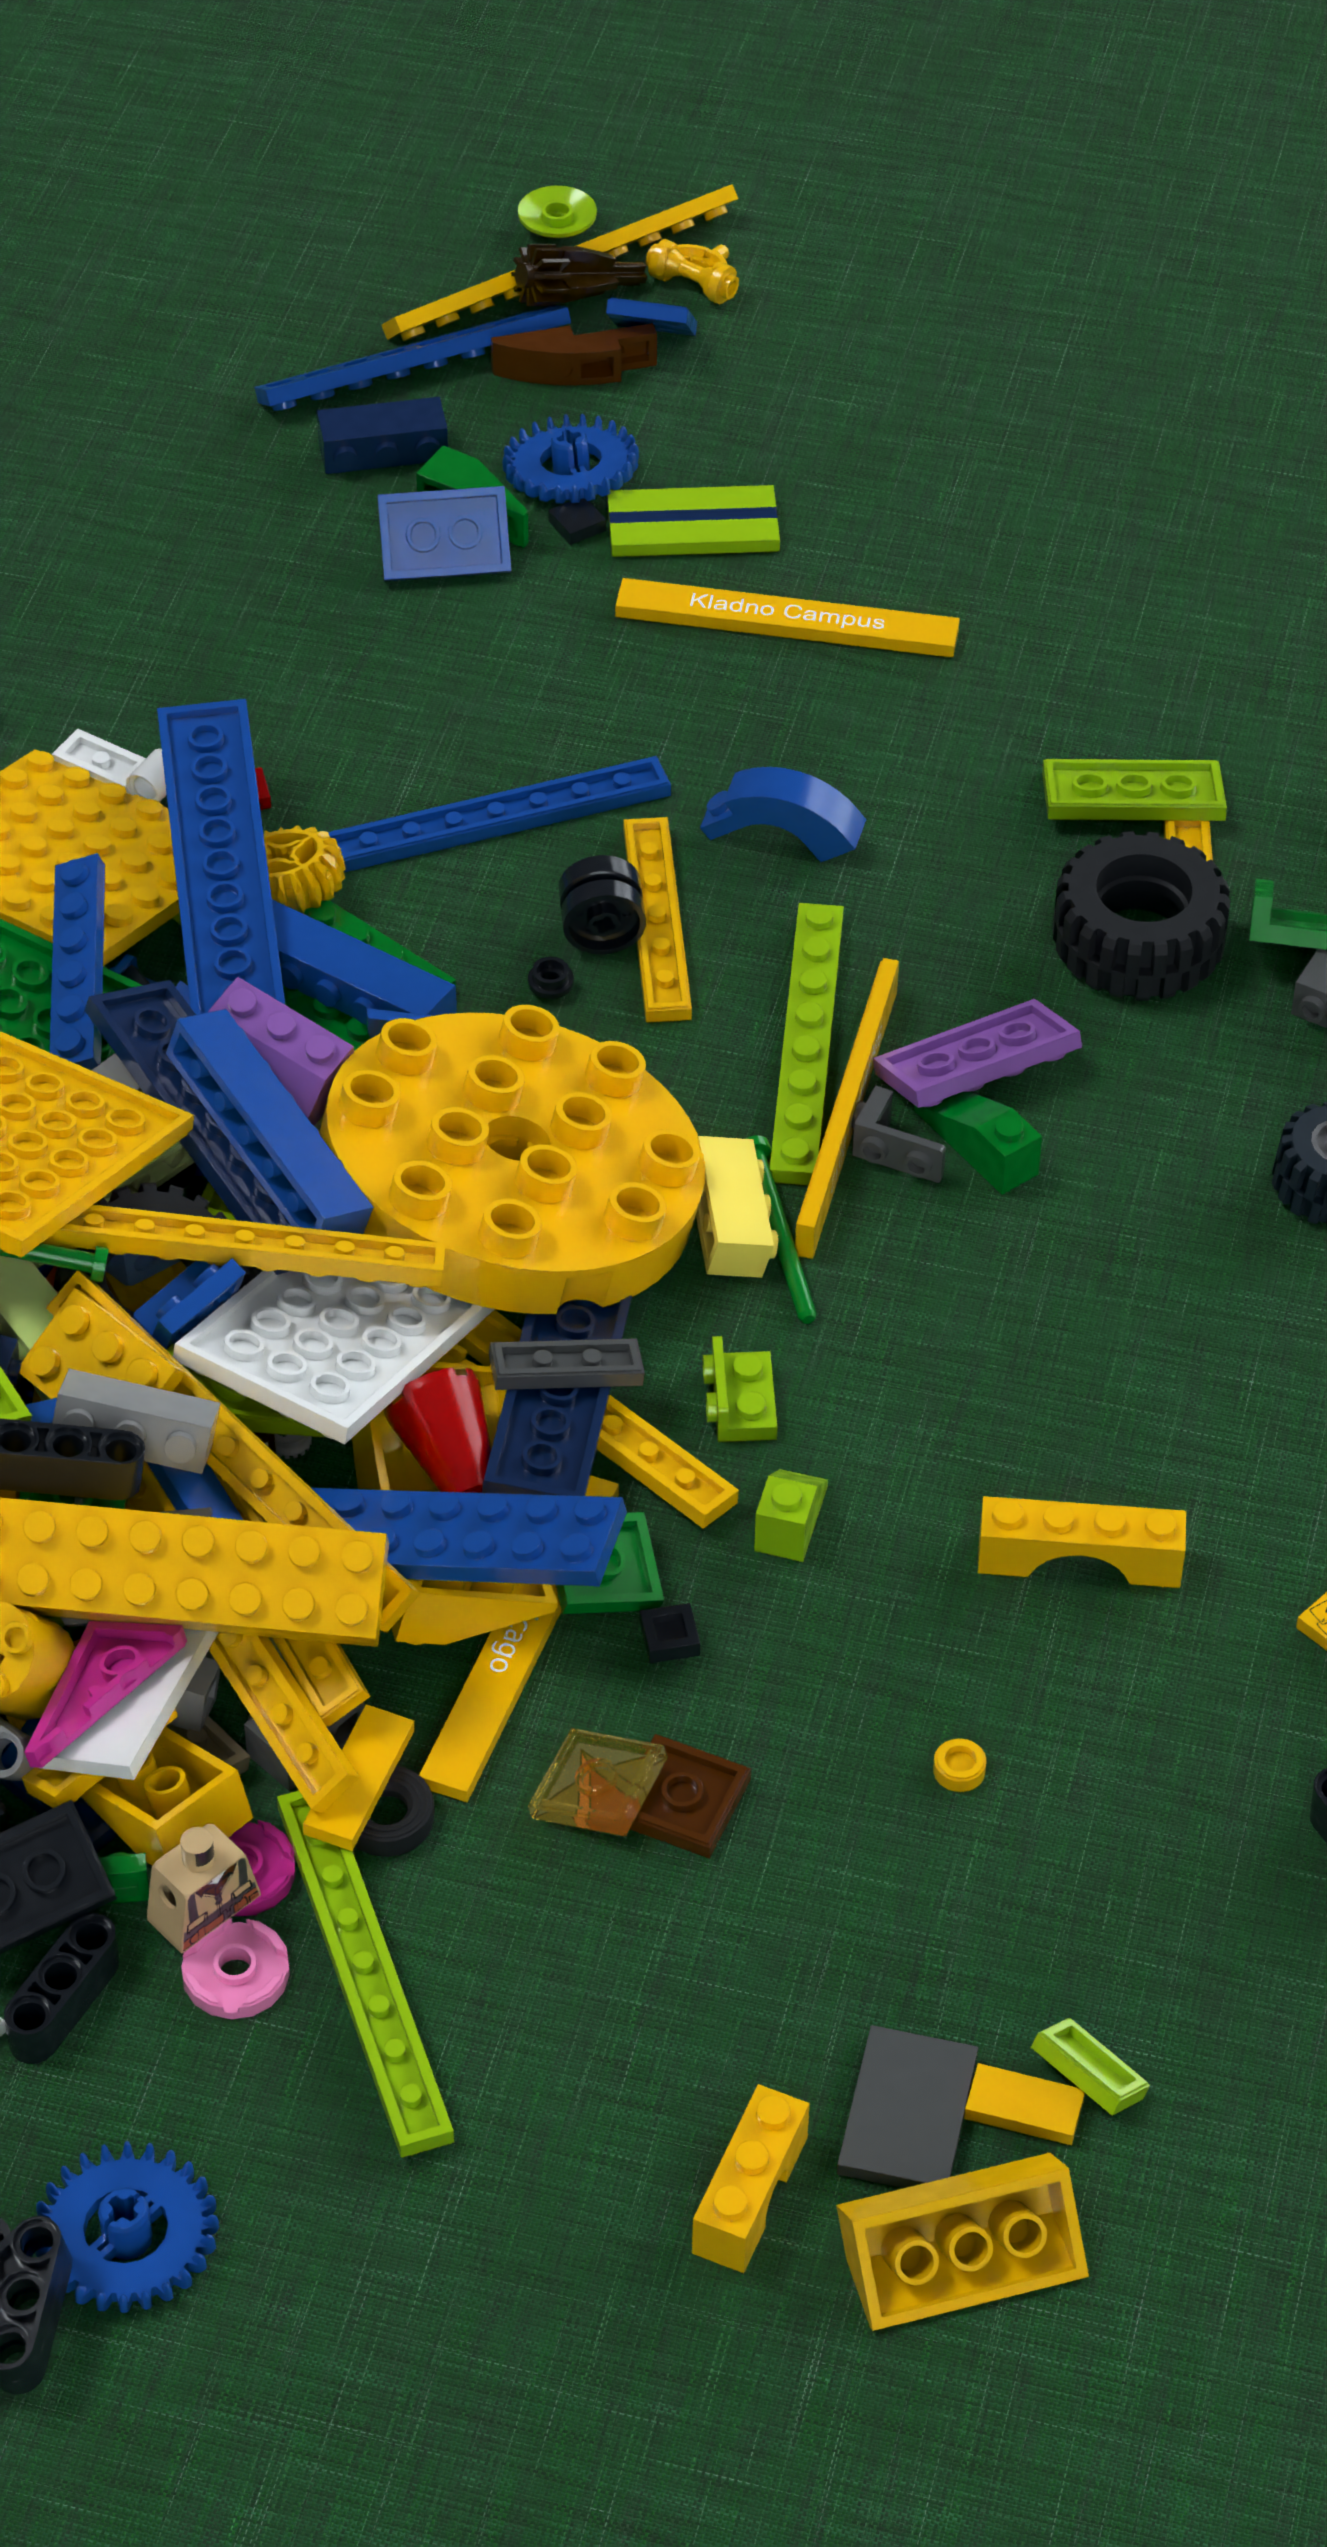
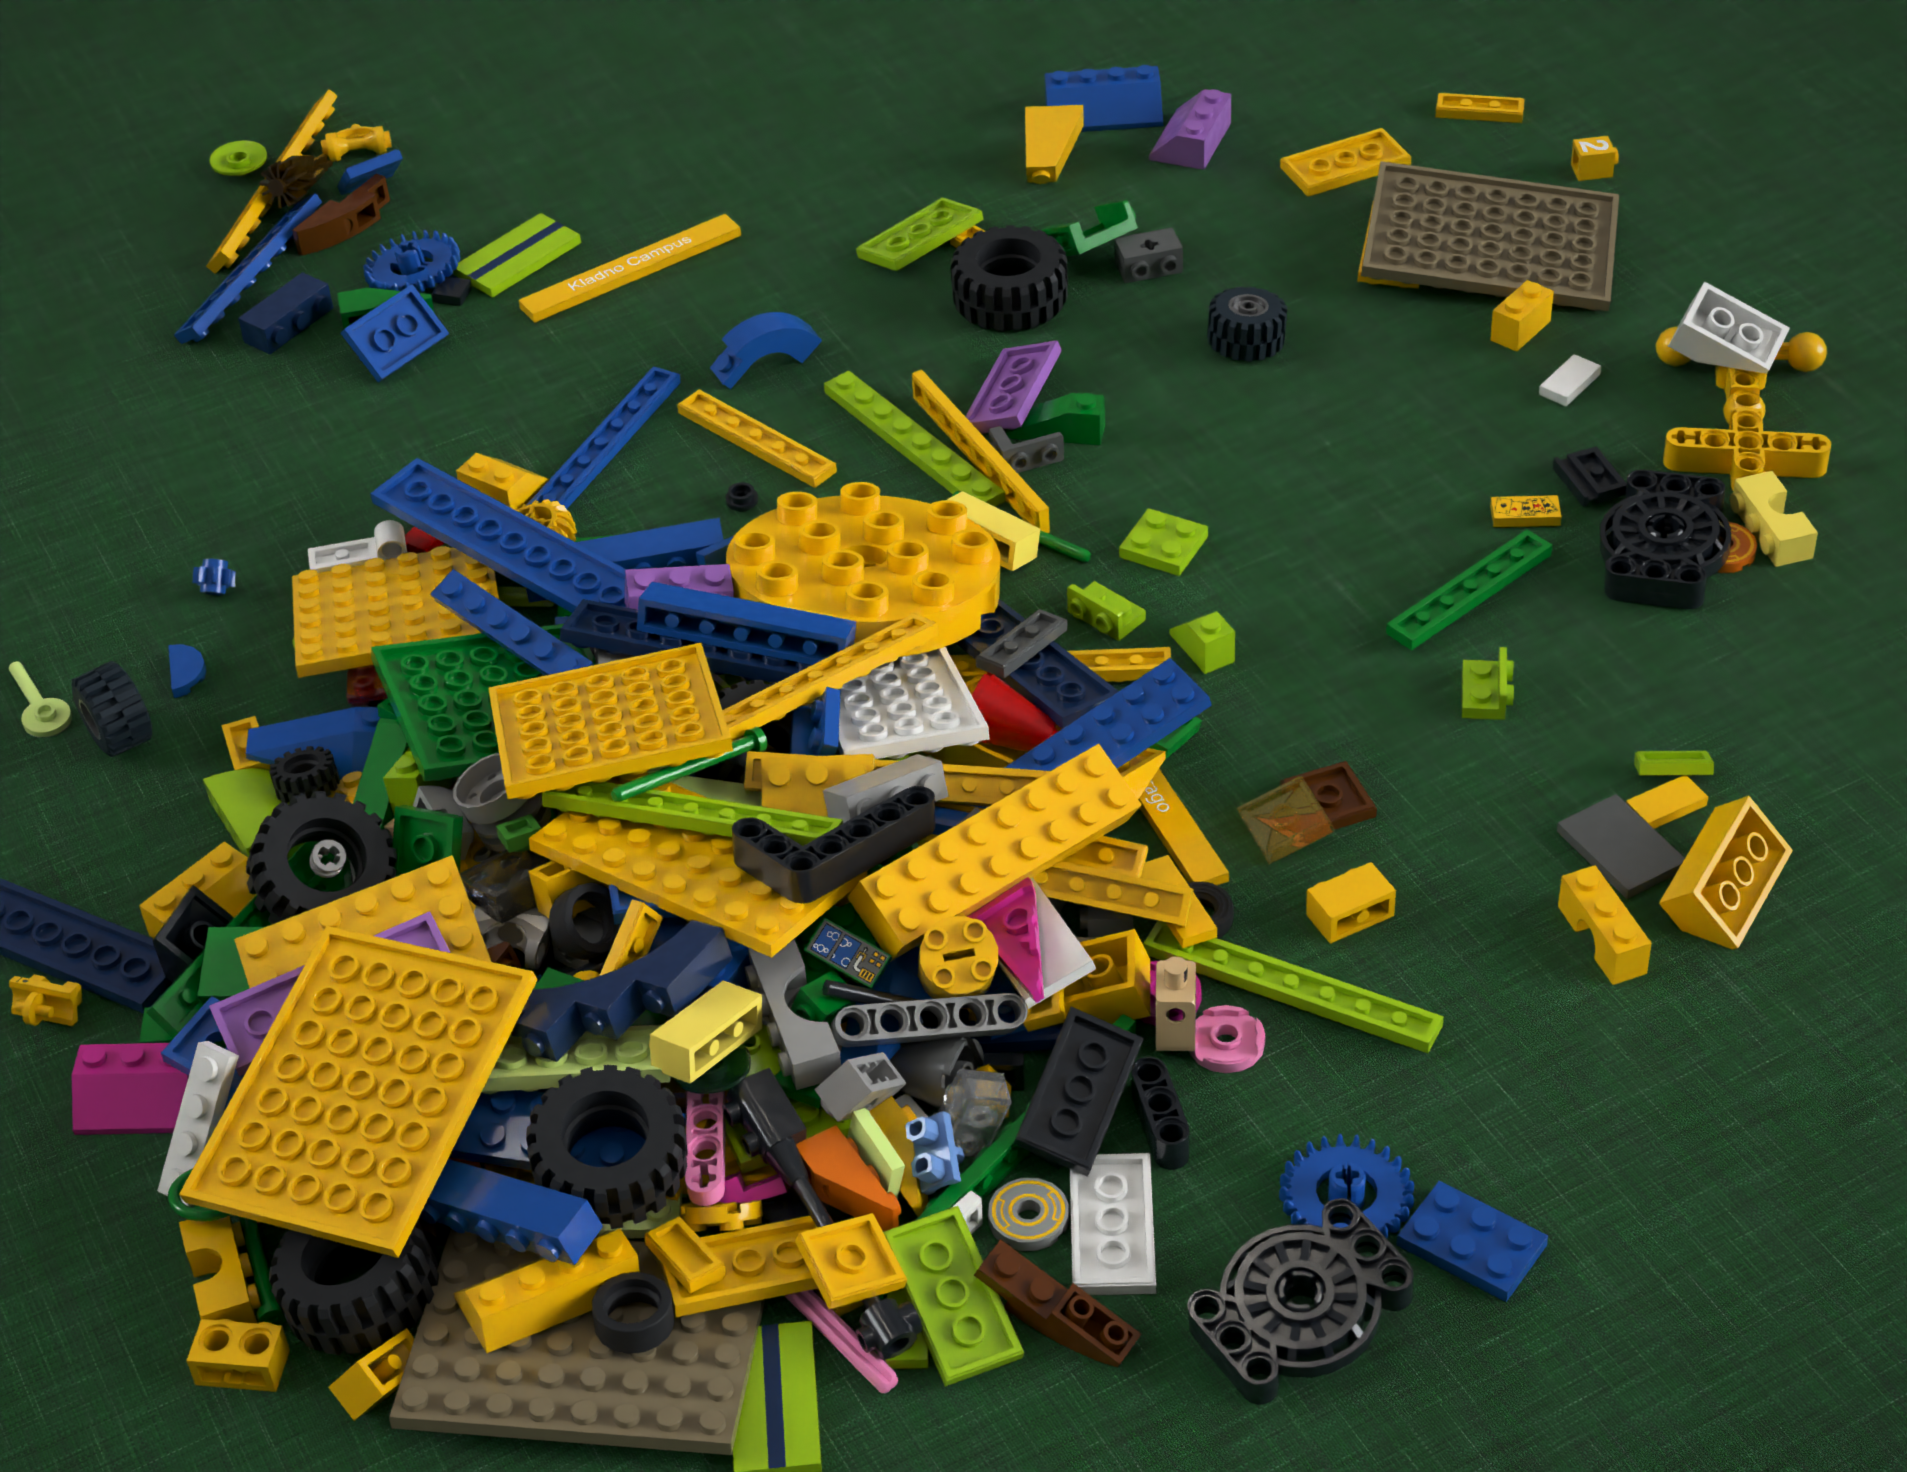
camera: 40 degrees left, 5 degrees down
(176, 2389) = (1472, 1241): none -> blue plate
(342, 783) = (501, 480): none -> yellow slope
(535, 1928) = (1350, 902): none -> yellow brick
(602, 904) = (731, 442): black wheel -> none
(669, 1633) = (1224, 732): black plate -> none
(909, 1362) = (1163, 542): none -> lime plate
(959, 1765) = (1433, 689): yellow tile -> none
(1014, 1809) = (1486, 687): none -> lime bracket
(1138, 1541) = (1331, 568): yellow arch -> none
(1153, 1679) = (1468, 589): none -> green plate

